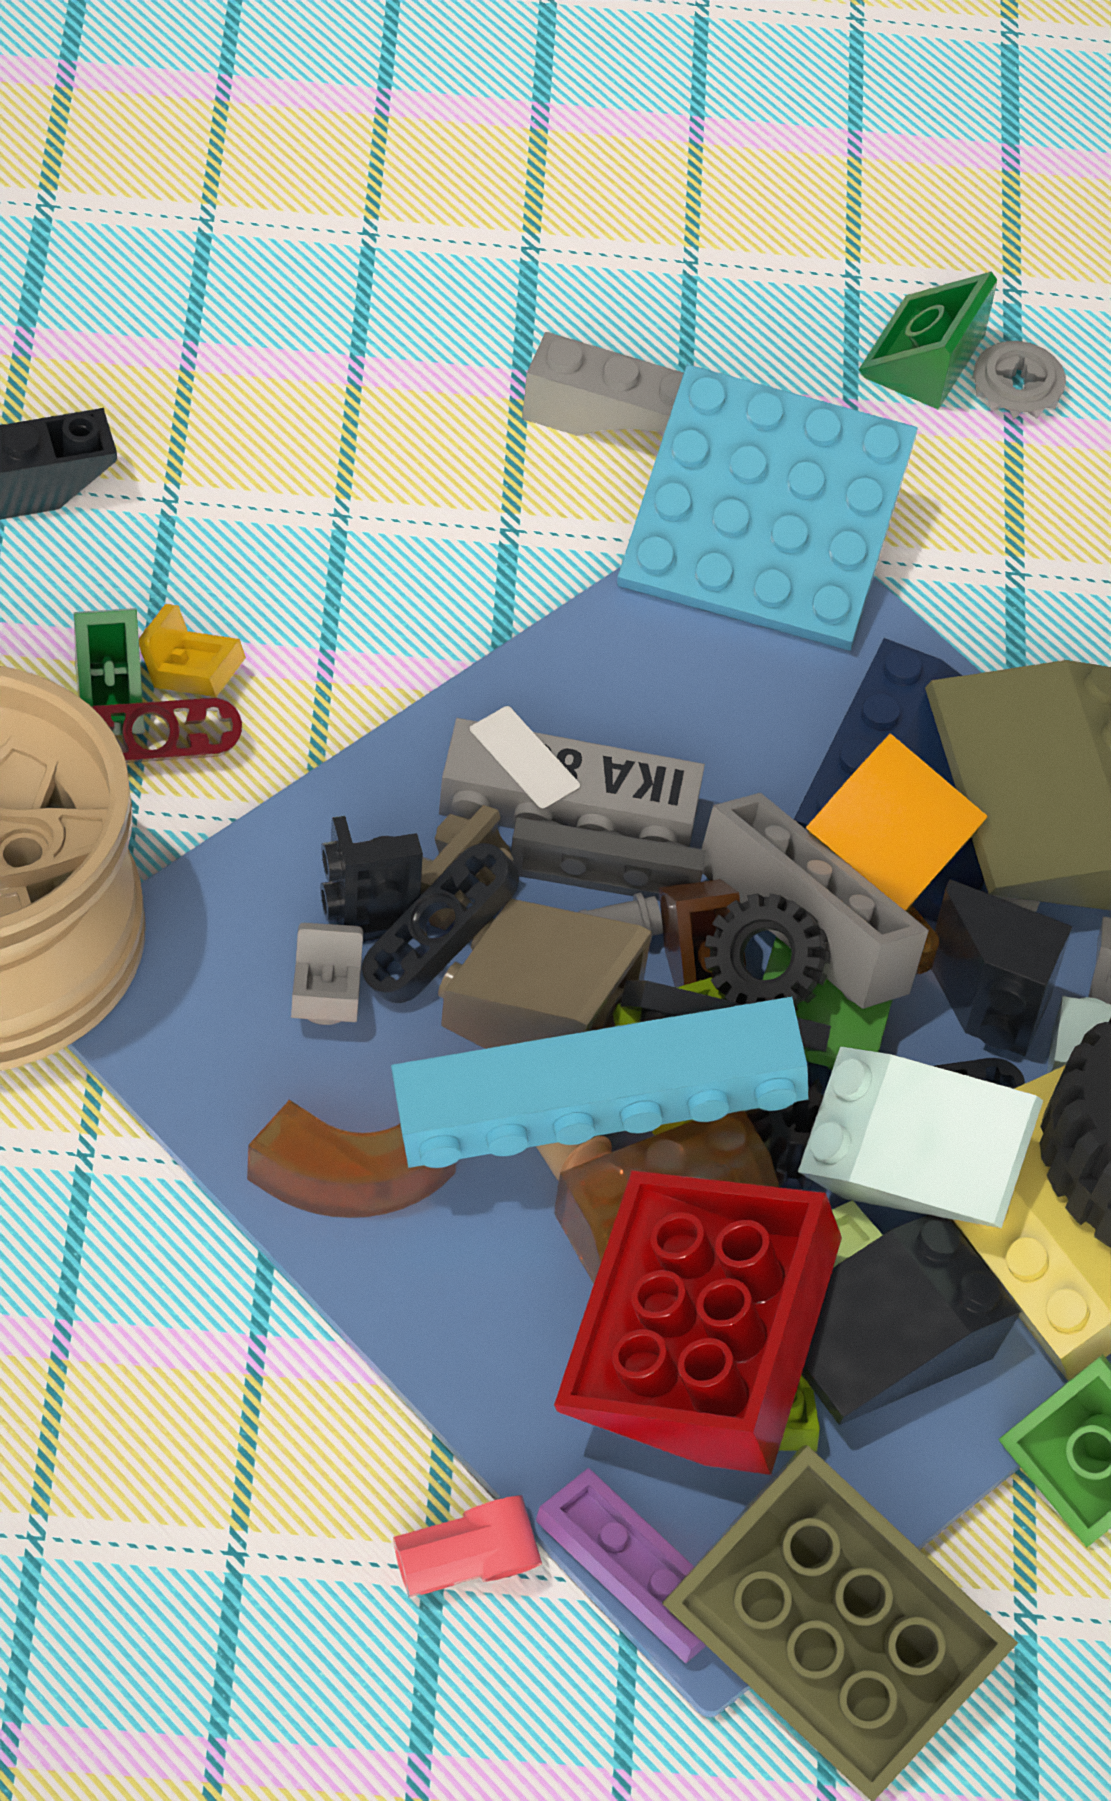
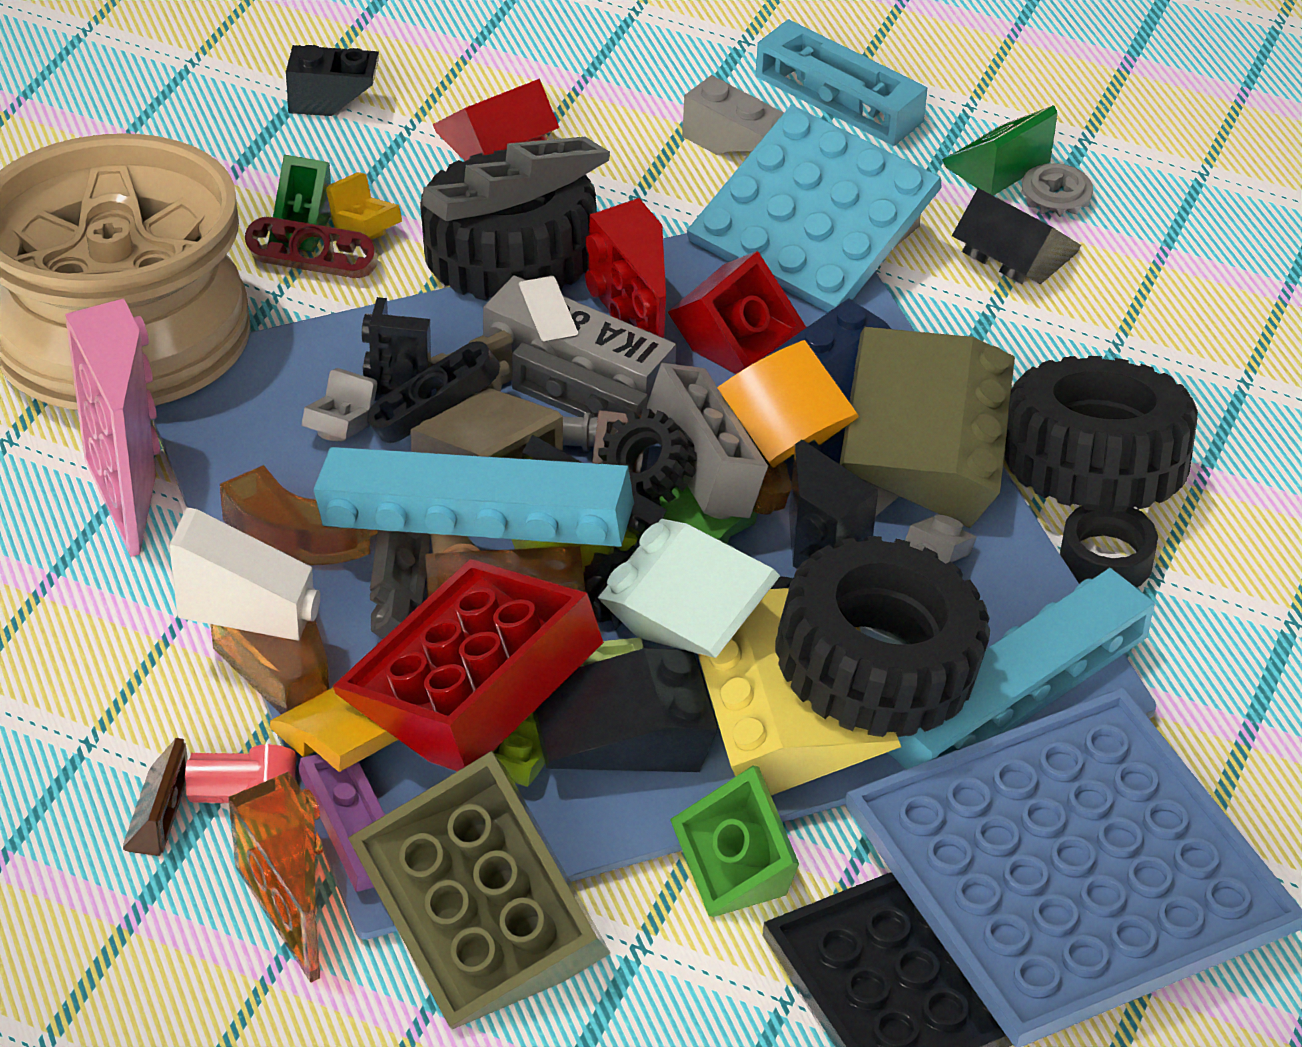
camera: 25 degrees right, 10 degrees down
(84, 1096) = (116, 412): none -> bright pink slope
(296, 471) = (503, 119): none -> red slope
(372, 1611) = (158, 802): none -> reddish brown slope
(376, 1295) = (238, 580): none -> white slope
(402, 581) = (522, 240): none -> black tyre
(424, 575) = (526, 174): none -> dark grey slope
(425, 1349) = (276, 667): none -> clear orange slope
(523, 1217) = (397, 578): none -> dark grey hinge
(552, 1450) = (331, 730): none -> yellow slope
(593, 1660) = (278, 861): none -> clear orange slope
(604, 672) = (628, 265): none -> red slope
(690, 286) = (840, 81): none -> medium azure brick
(745, 692) = (737, 314): none -> red slope
(1007, 476) = (1012, 238): none -> black slope

